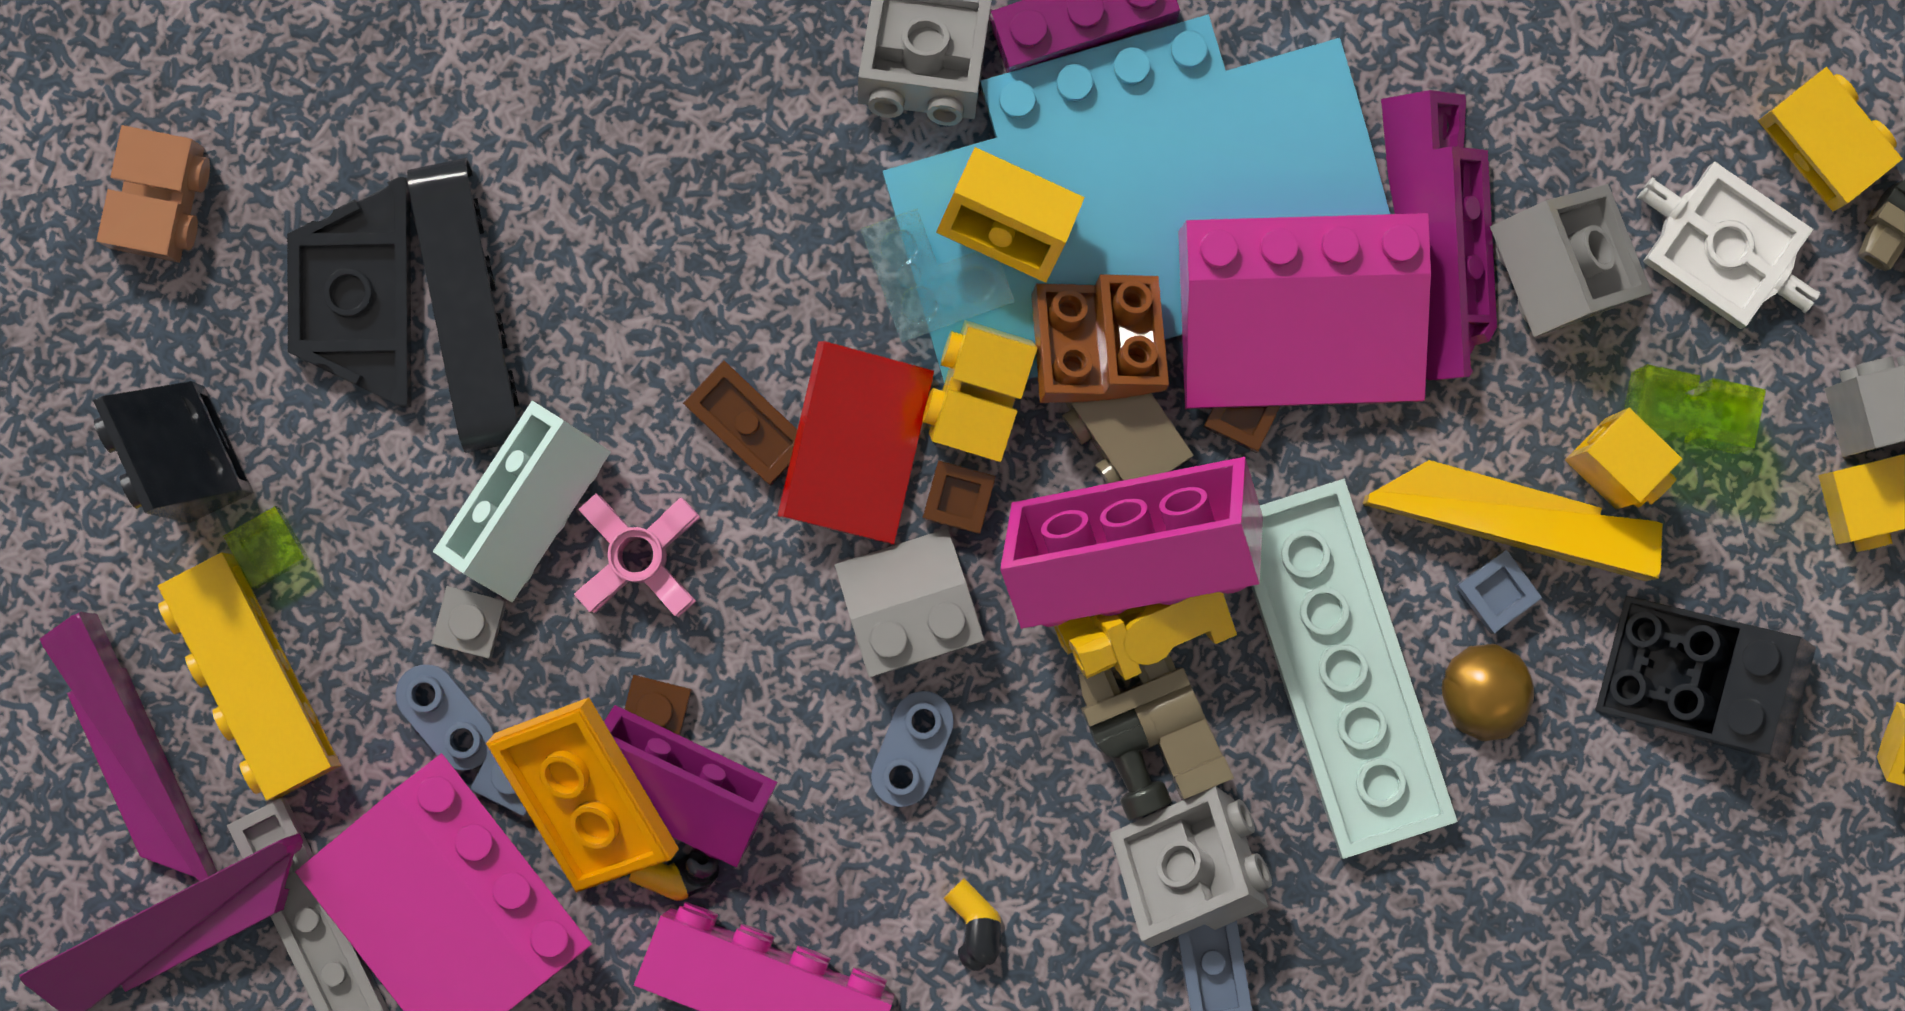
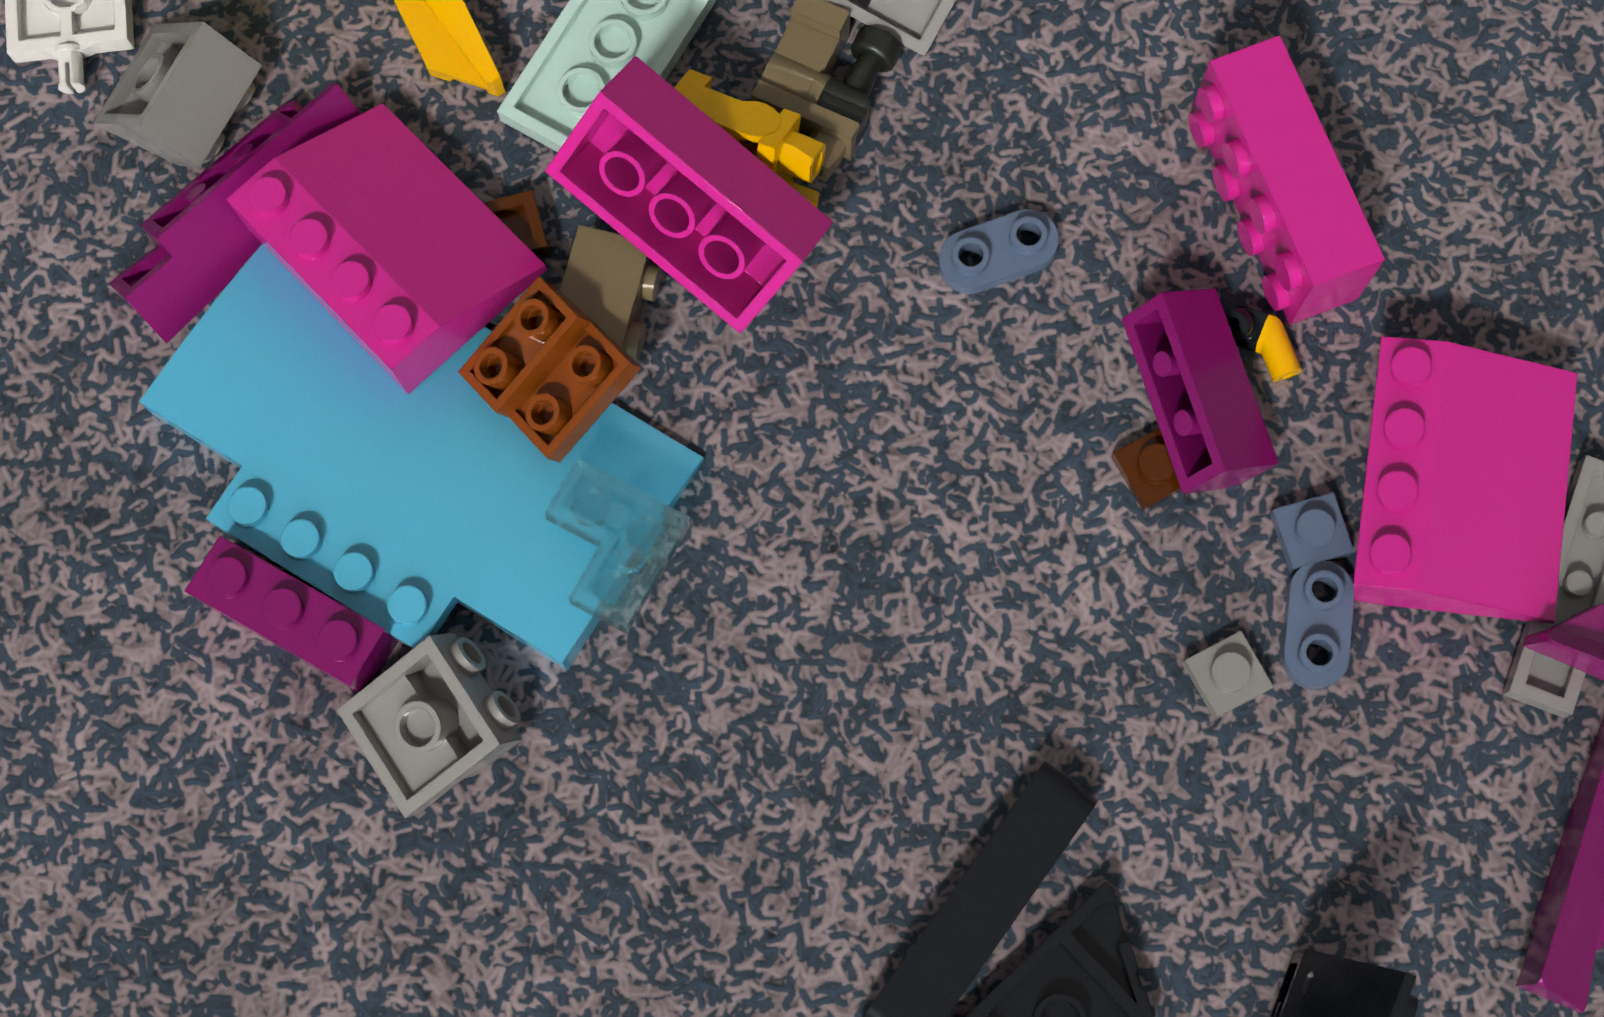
camera: 130 degrees left, 10 degrees down
(247, 676) = (1443, 808): yellow brick -> none
(265, 547) = (1328, 894): clear neon green plate -> none
(521, 502) = (1096, 711): light aqua brick -> none
(582, 795) = (1276, 448): light orange tile -> none
(615, 575) = (1094, 589): bright pink pin -> none
(744, 422) = (865, 596): reddish brown plate -> none
(855, 442) = (803, 495): red tile -> none
(909, 603) = (891, 342): light grey slope -> none
(959, 497) = (773, 381): reddish brown plate -> none
(979, 390) = (661, 443): yellow piece -> none
(982, 926) = (1080, 86): arm -> none
(1010, 215) = (508, 515): yellow brick -> none

